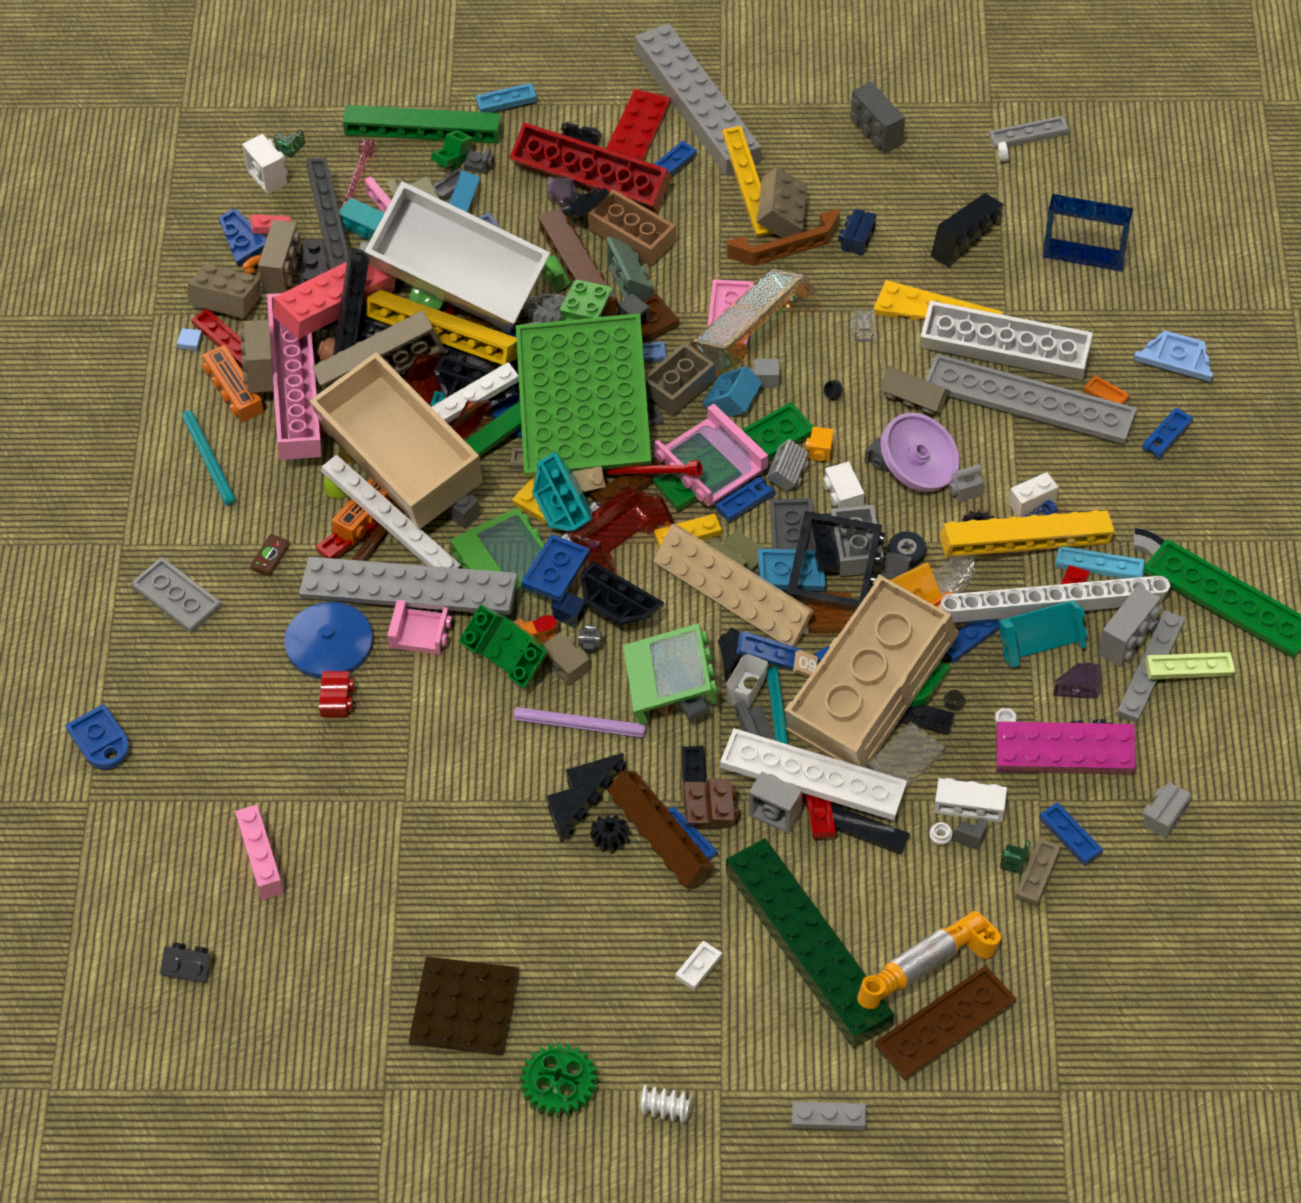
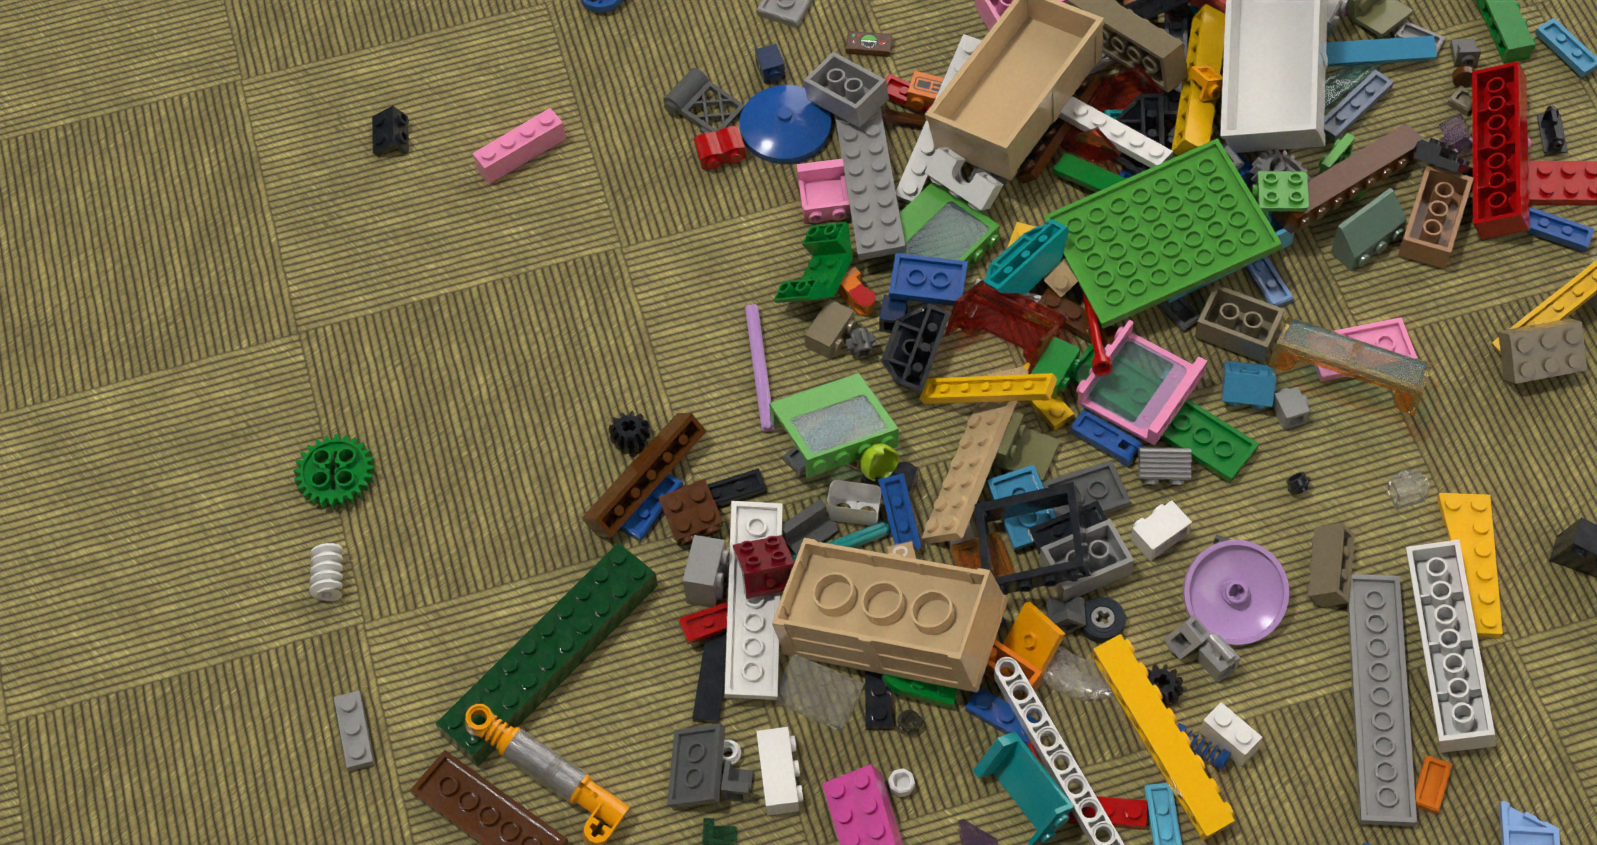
camera: 75 degrees right, 5 degrees up
(260, 632) = (770, 63): none -> dark blue brick
(262, 702) = (690, 92): none -> dark grey piece
(331, 572) = (846, 89): none -> light grey brick
(454, 150) = (1461, 24): green brick -> none
(455, 312) = (1209, 80): none -> light orange bracket
(464, 1006) = (401, 368): dark brown plate -> none
(483, 507) = (946, 171): none -> white arch
(504, 168) = (1462, 76): none -> reddish brown tile
(523, 180) = (1461, 101): none -> dark tan tile
(585, 790) = (672, 395): black slope -> none
(634, 305) = (1311, 247): dark grey panel -> none
(660, 319) = (1319, 275): reddish brown plate -> none
(682, 509) = (1060, 360): none -> green brick
(686, 548) = (988, 388): none -> yellow plate
(698, 965) = (496, 559): white plate -> none
(721, 647) = (879, 461): none -> lime hair
(741, 251) = (1545, 412): dark orange slope -> none
(791, 748) = (764, 565): none -> dark red bracket
(820, 444) = (1212, 490): light orange brick -> none
(857, 231) = (1548, 445): dark blue brick -> none
(945, 496) = (1187, 637): none -> light grey brick
(950, 854) = (696, 766): none -> dark grey plate

